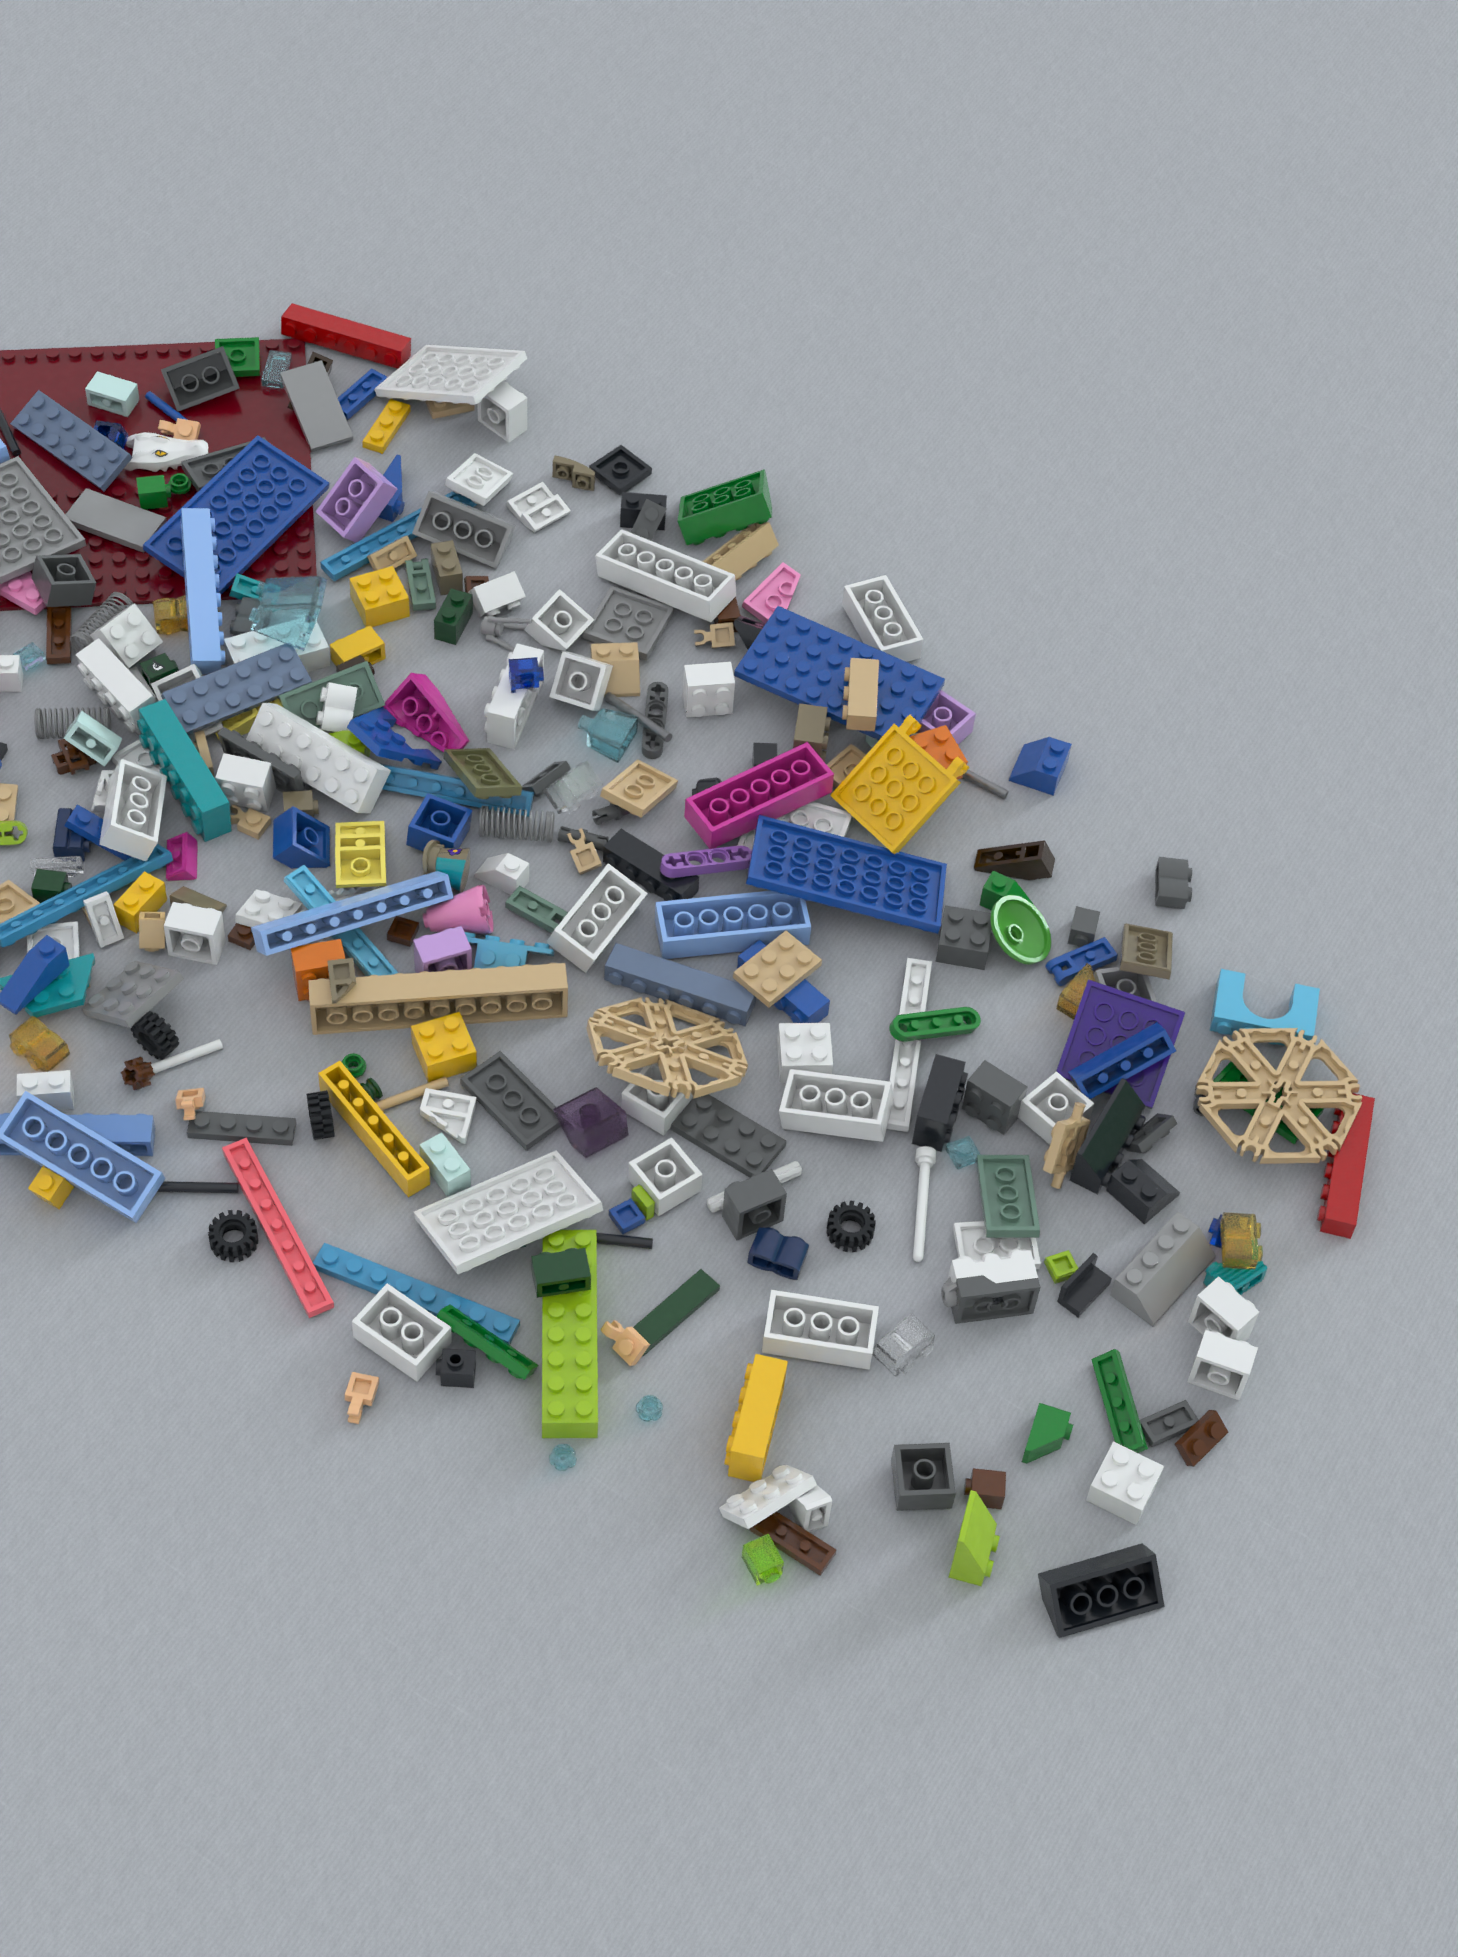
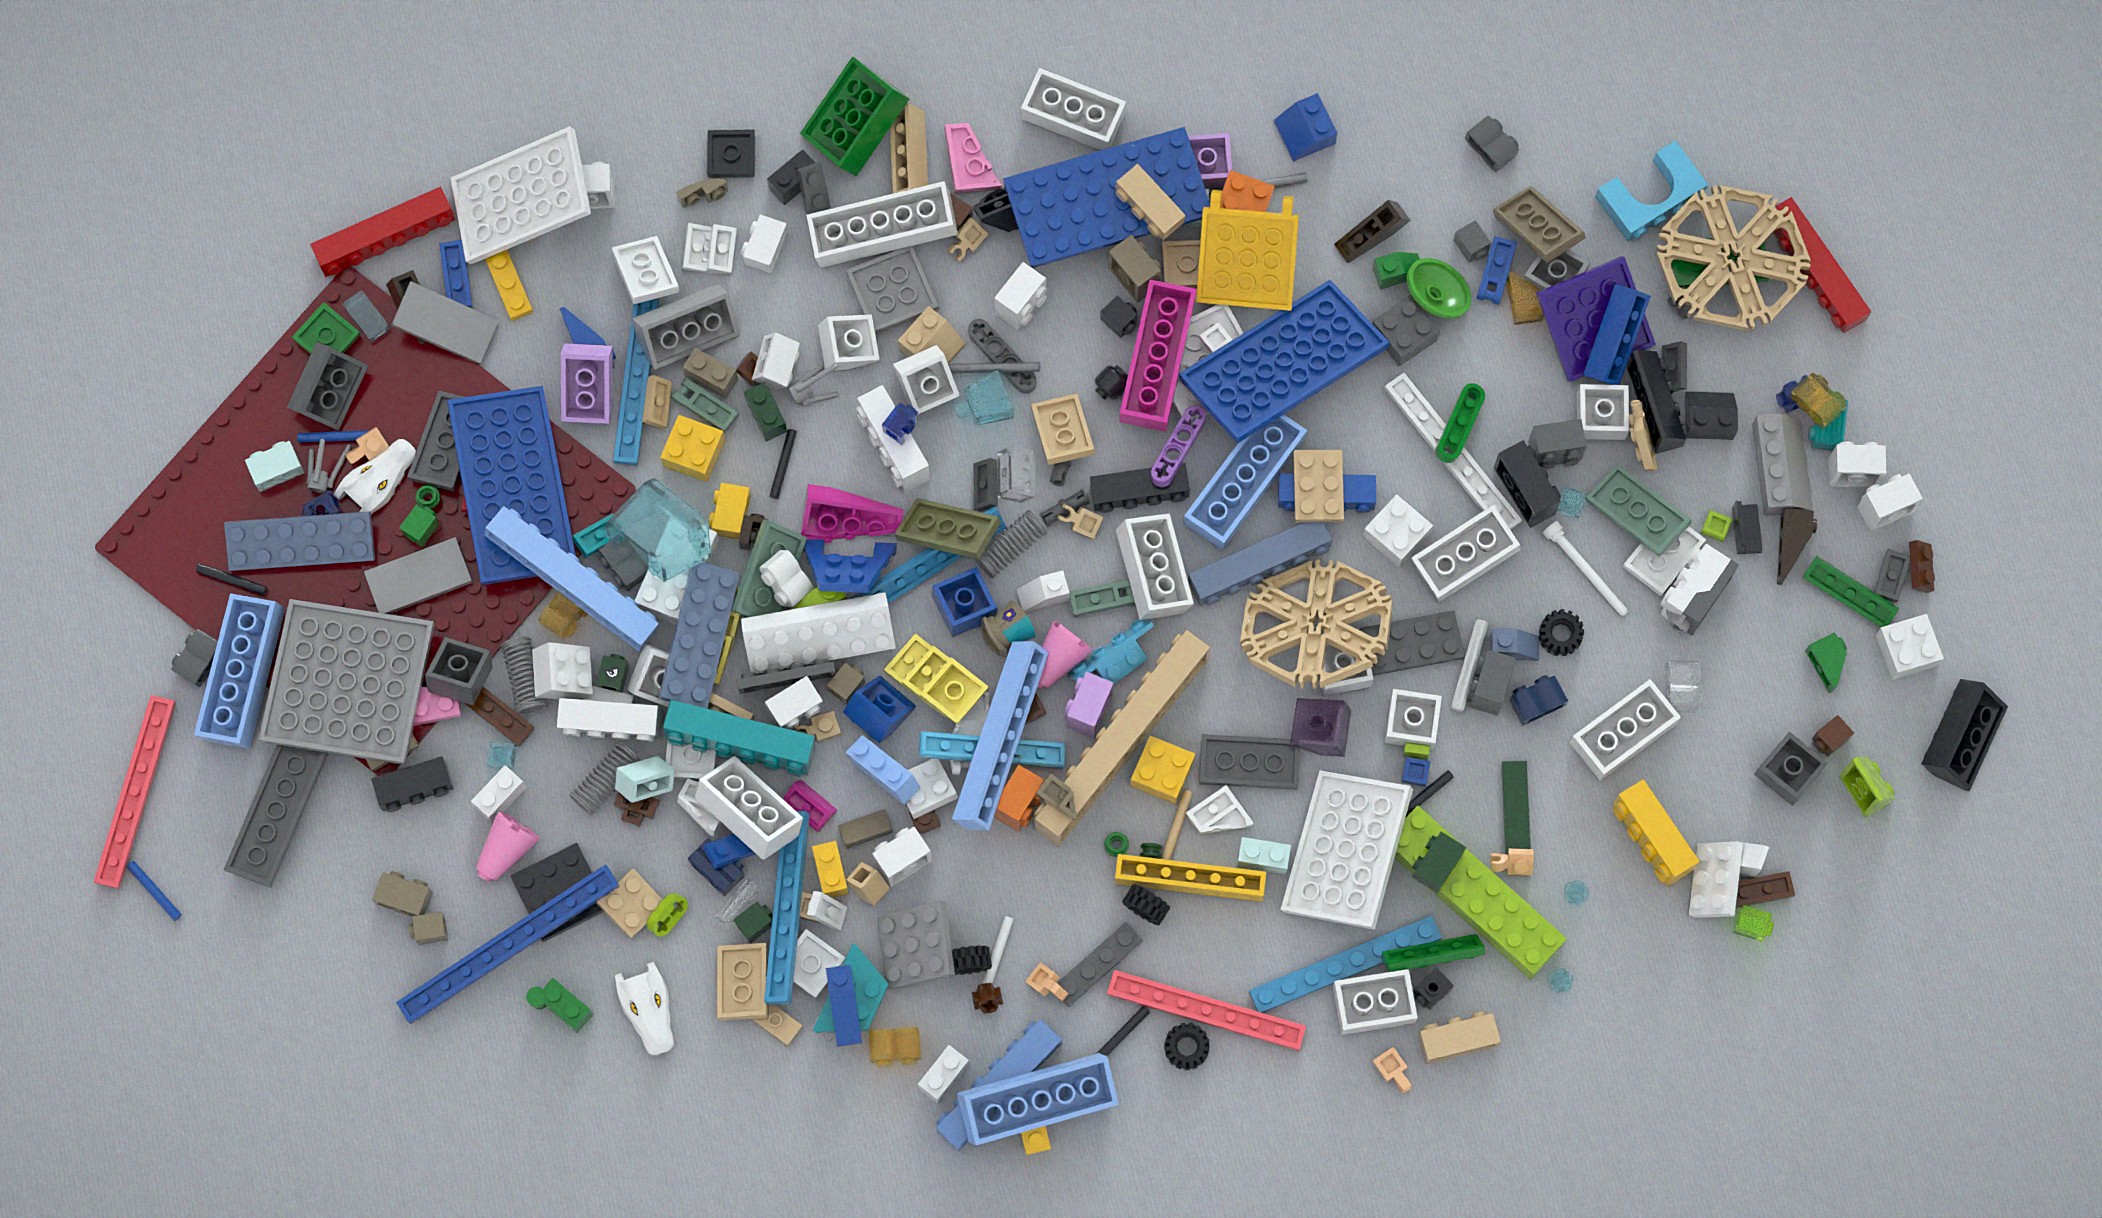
camera: 40 degrees left, 20 degrees up
(129, 419) = (317, 479): none -> light grey plant
(251, 871) = (883, 769): none -> light blue brick
(429, 657) = (783, 463): none -> black bar
(435, 1419) = (1459, 1037): none -> tan brick
(577, 531) = (764, 244): none -> white brick
(805, 1200) = (1515, 643): none -> sand blue slope
(816, 820) = (1215, 337): none -> white plate
(1113, 1327) = (1795, 532): none -> dark brown slope

